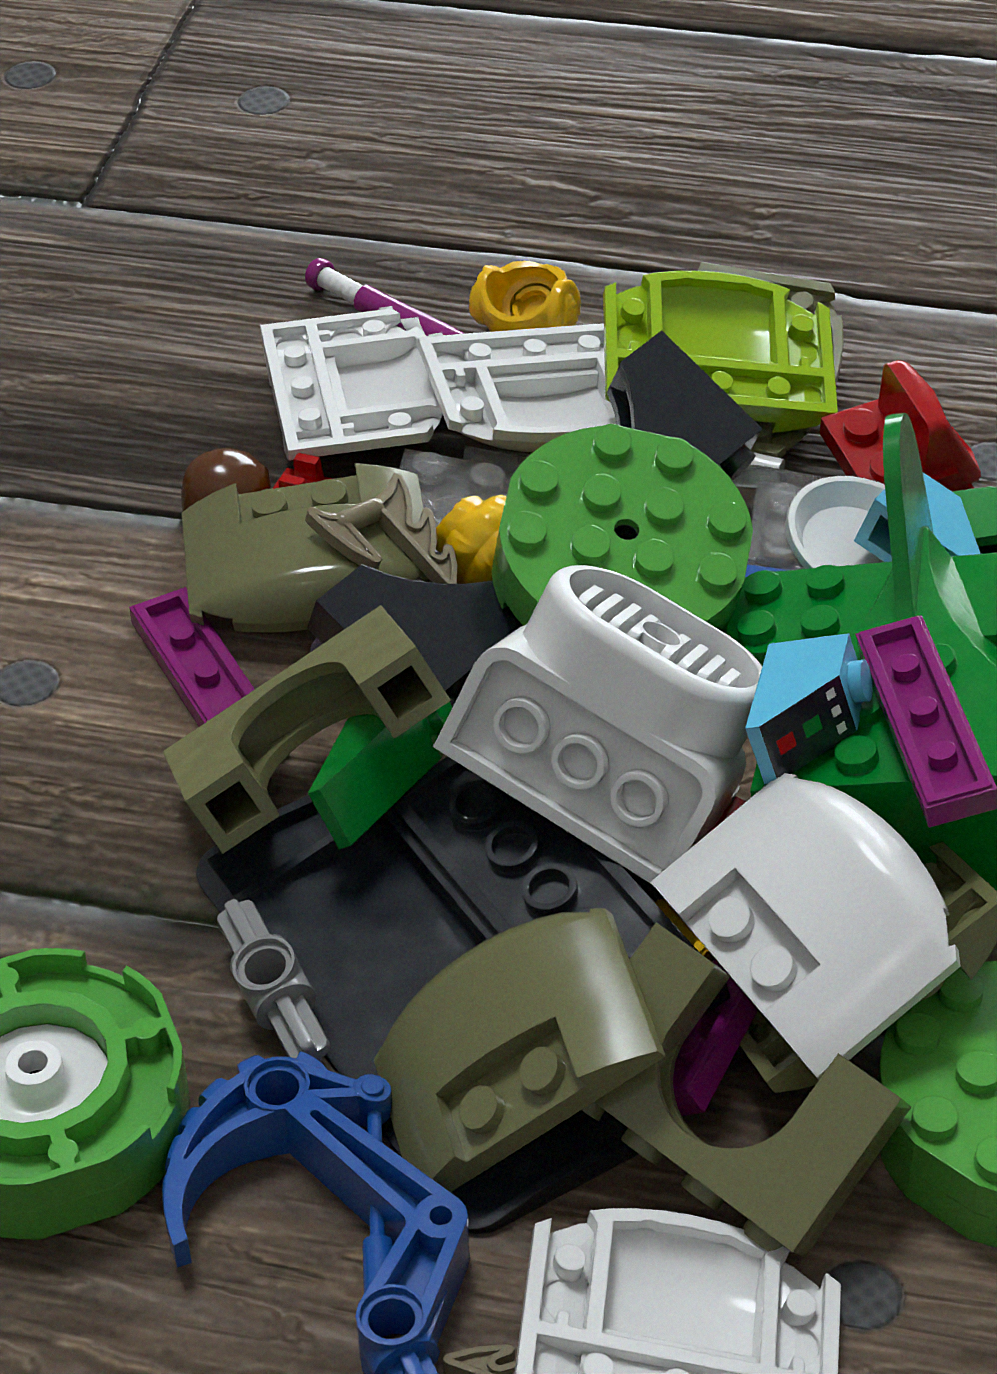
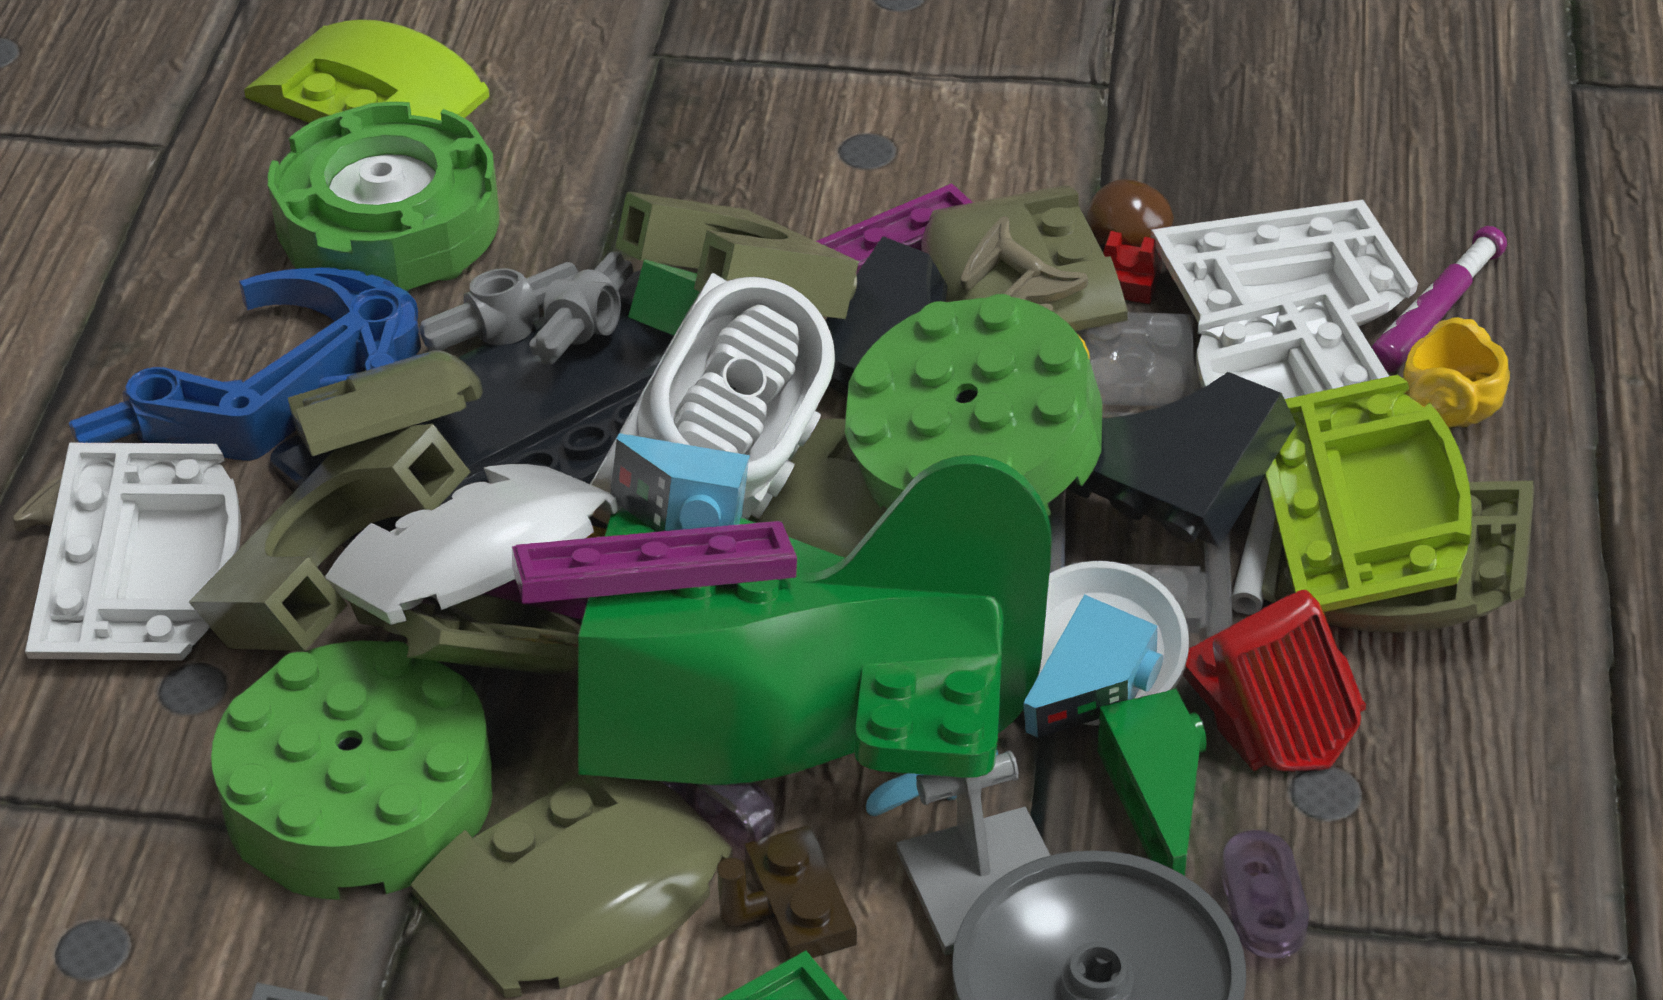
camera: 85 degrees right, 0 degrees up
(304, 898) = (581, 307): none -> light grey axle

